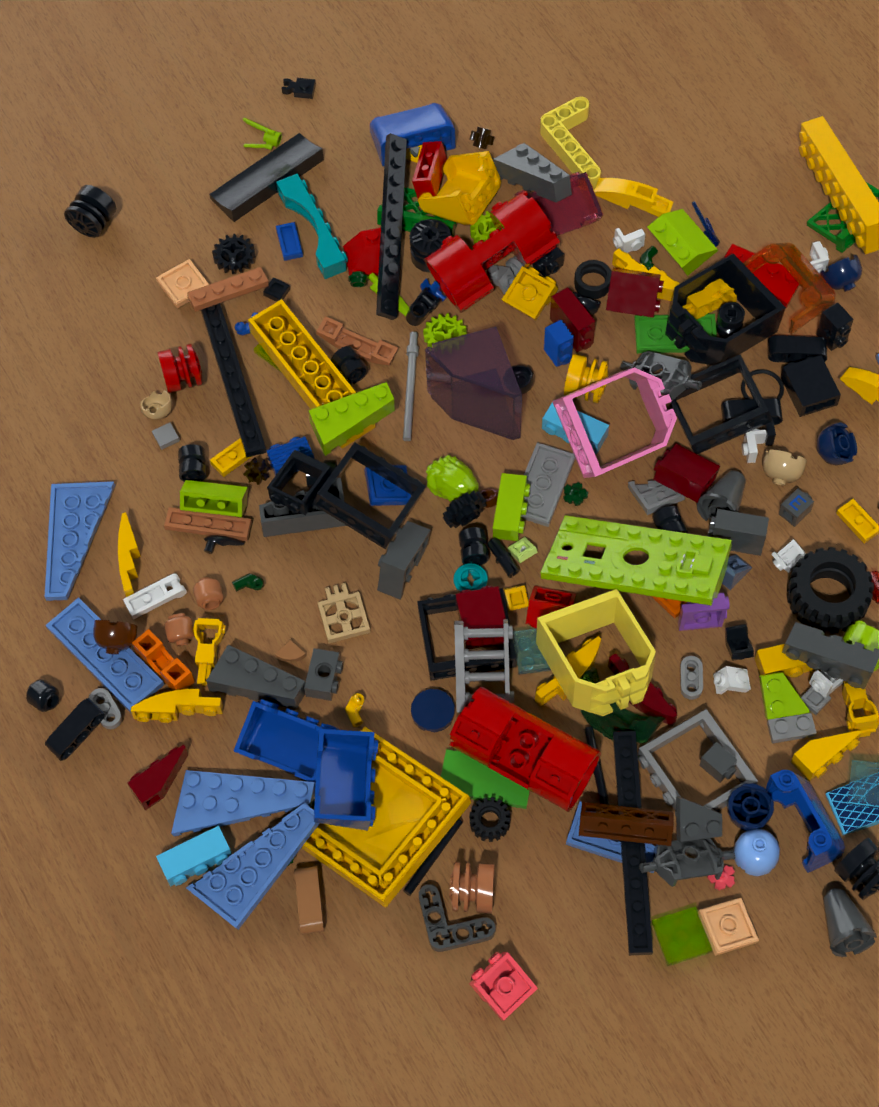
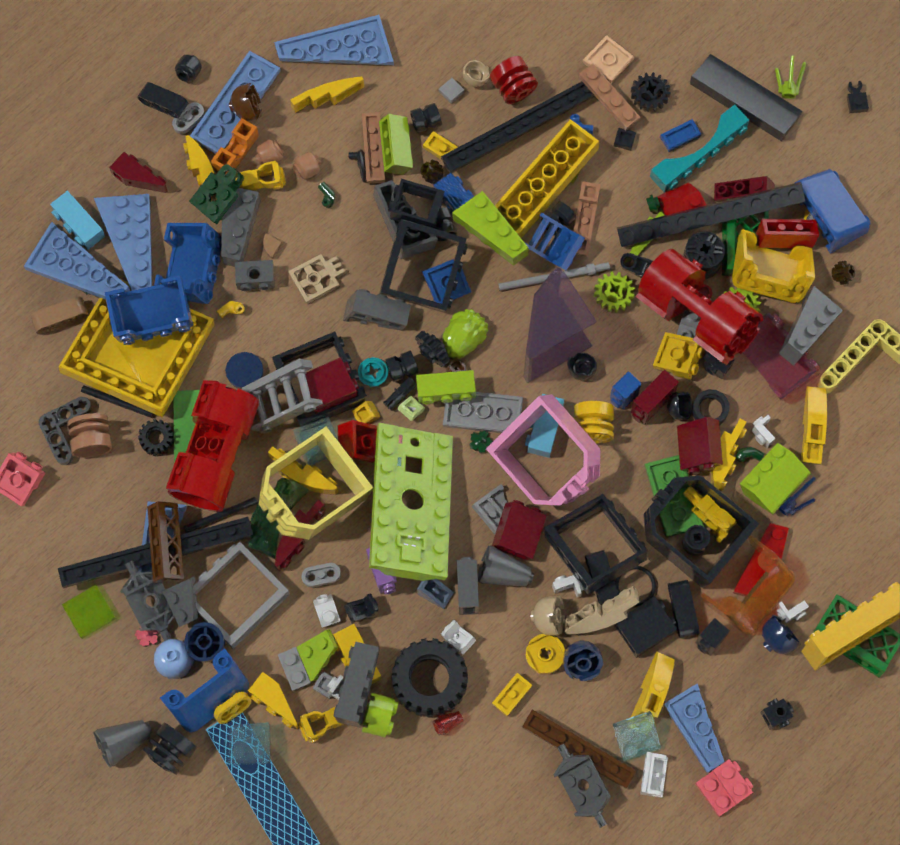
camera: 75 degrees right, 10 degrees up
(154, 596) = (296, 125): white plate -> none
(210, 678) = (224, 187): none -> dark green plate
(368, 199) = (741, 187): none -> dark red slope
(381, 365) = (563, 246): none -> blue plate
(669, 519) = (464, 527): black wheel -> none
(675, 372) = (613, 498): dark grey plate -> none
(718, 763) = (236, 608): dark grey brick -> none
(728, 926) = (102, 646): light nougat plate -> none
(771, 434) = (584, 598): black tile -> none
(793, 420) = (597, 616): none -> tan slope
(796, 507) = (511, 636): dark grey brick -> none
(818, 492) = (543, 665): none -> yellow plate
(822, 789) = (232, 707): none -> yellow plate

